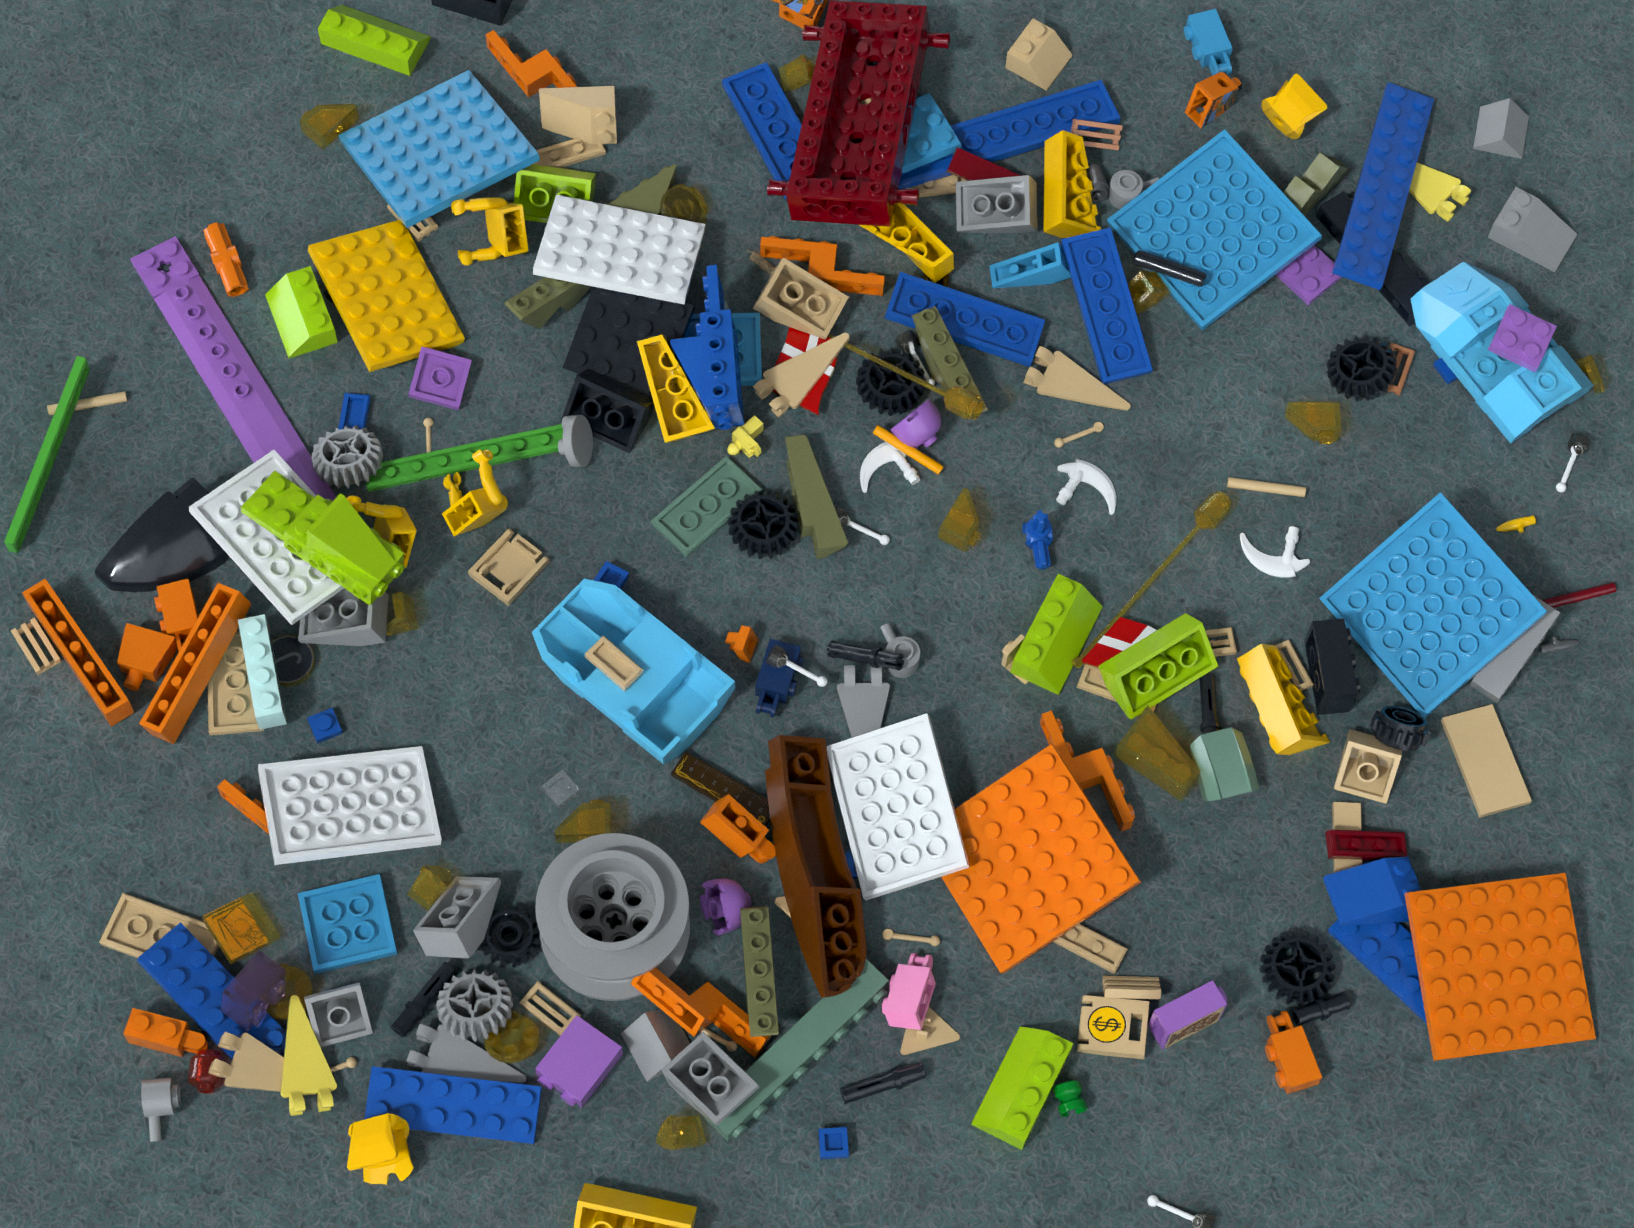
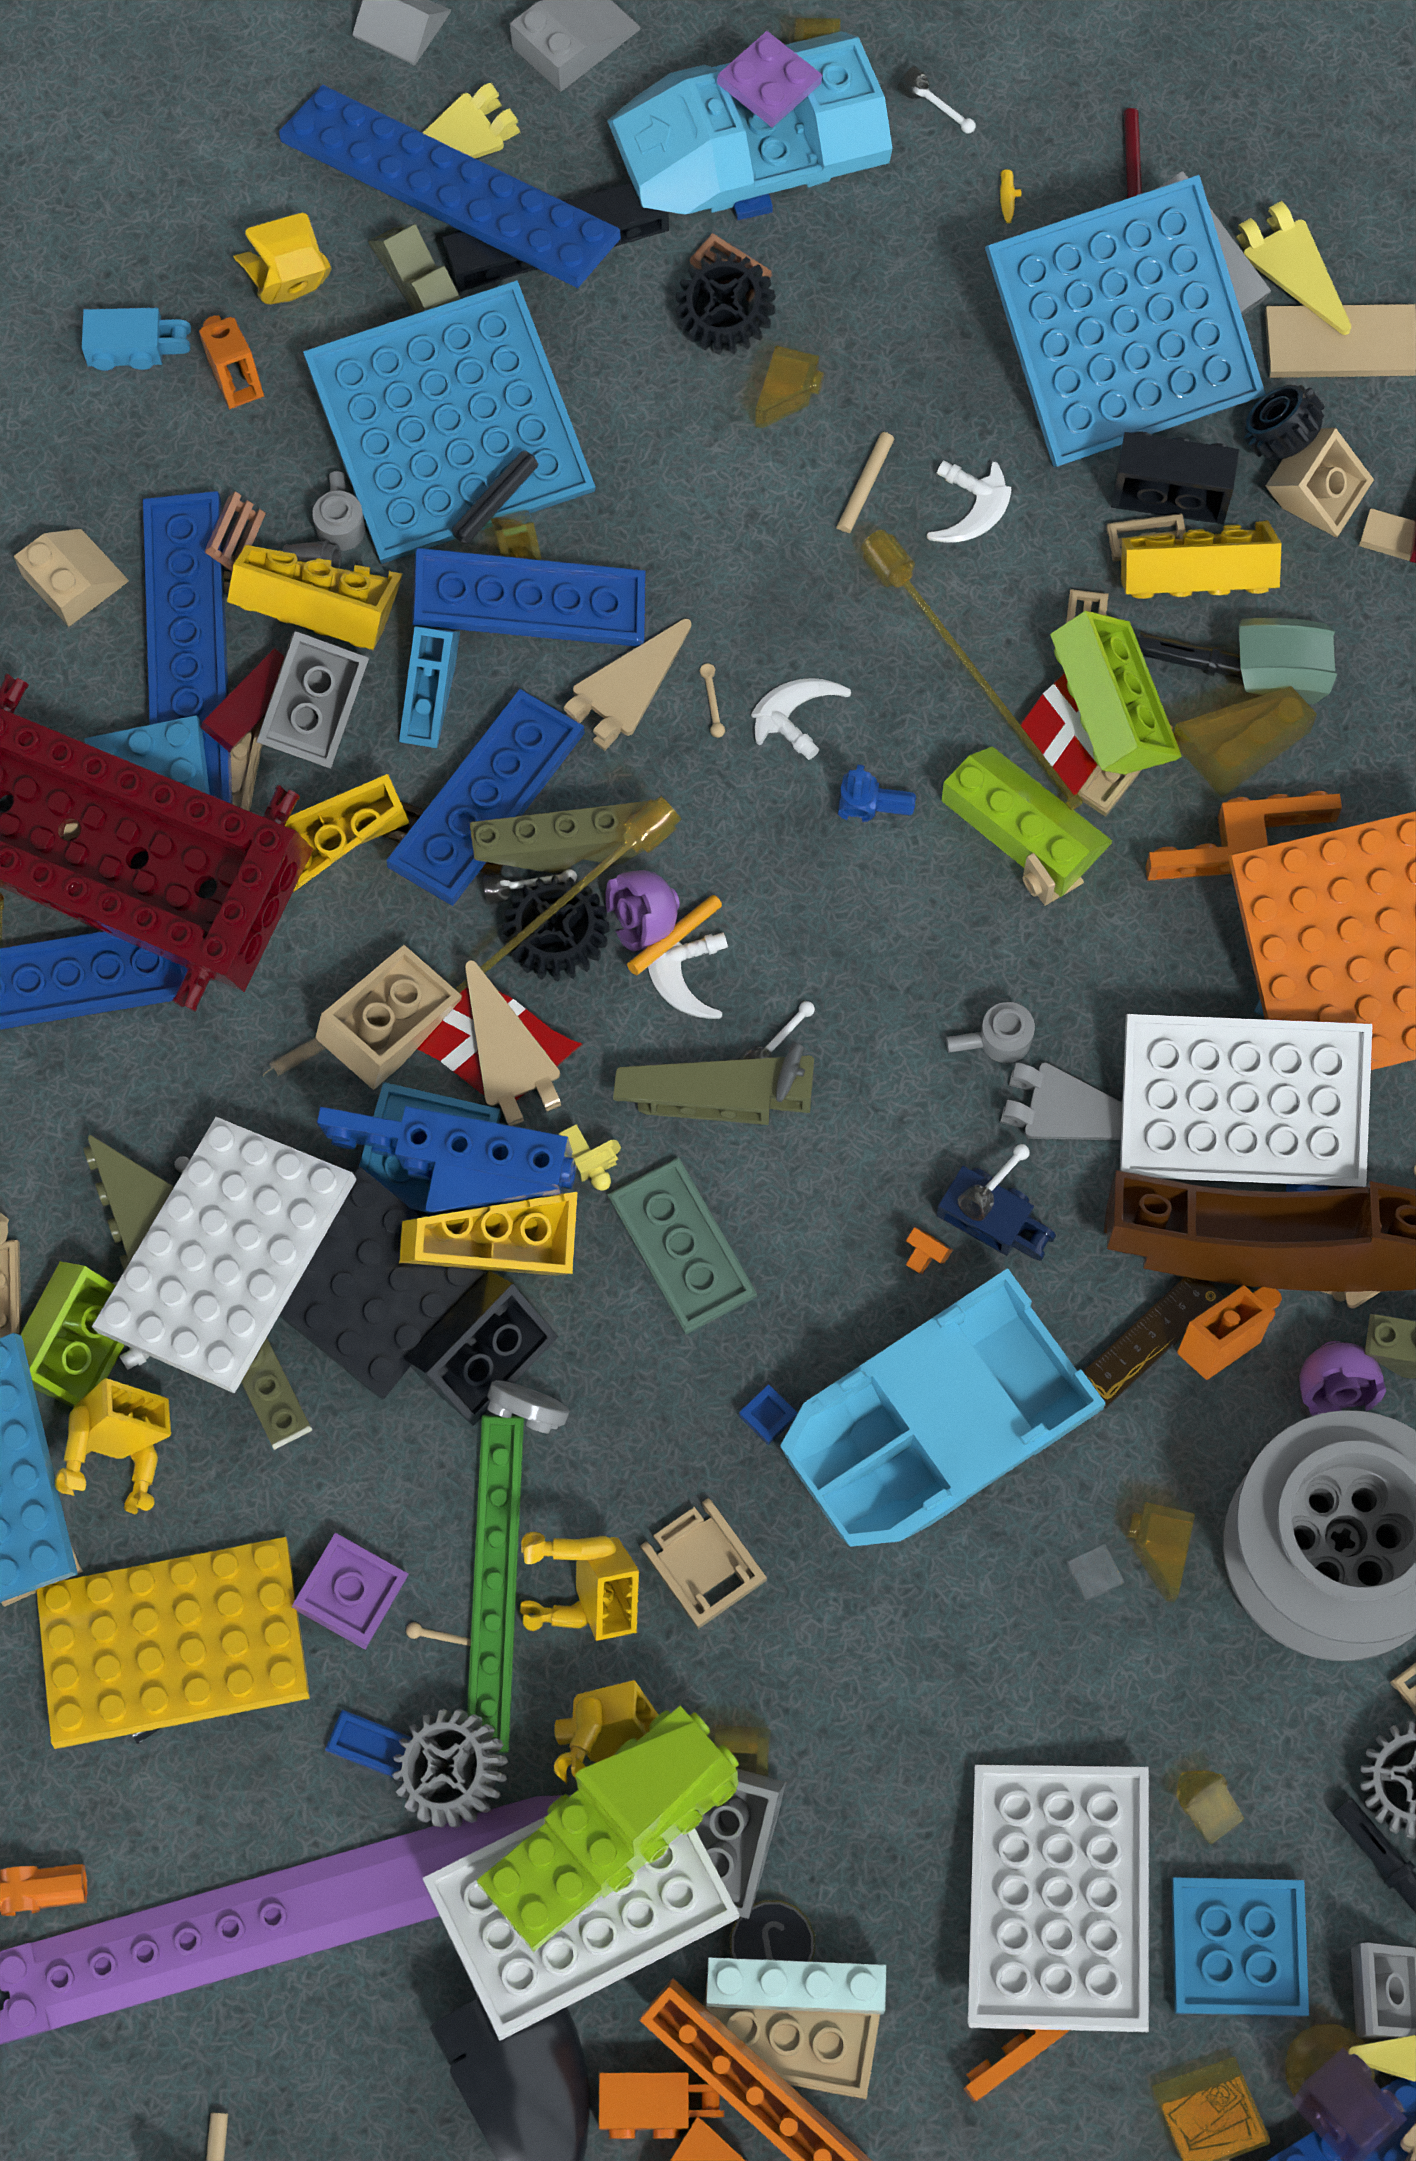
camera: 70 degrees left, 5 degrees up
(300, 313) = (160, 1788): lime slope -> none
(324, 725) = (898, 1910): blue plate -> none
(458, 918) = (1276, 1768): light grey slope -> none
(514, 951) = (1332, 1687): black gear -> none
(613, 663) = (938, 1434): tan tile -> none
(684, 204) = (163, 1144): clear yellow tile -> none
(743, 530) = (754, 1170): black gear -> none
(822, 264) = (328, 971): orange bracket -> none
(831, 530) = (789, 1071): none -> dark grey helmet
(875, 657) = (1003, 1072): black pin -> none
(961, 523) = (814, 893): clear yellow slope -> none
(1309, 275) = (559, 323): medium lavender plate -> none
(1531, 715) = (1294, 264): none -> light yellow flag

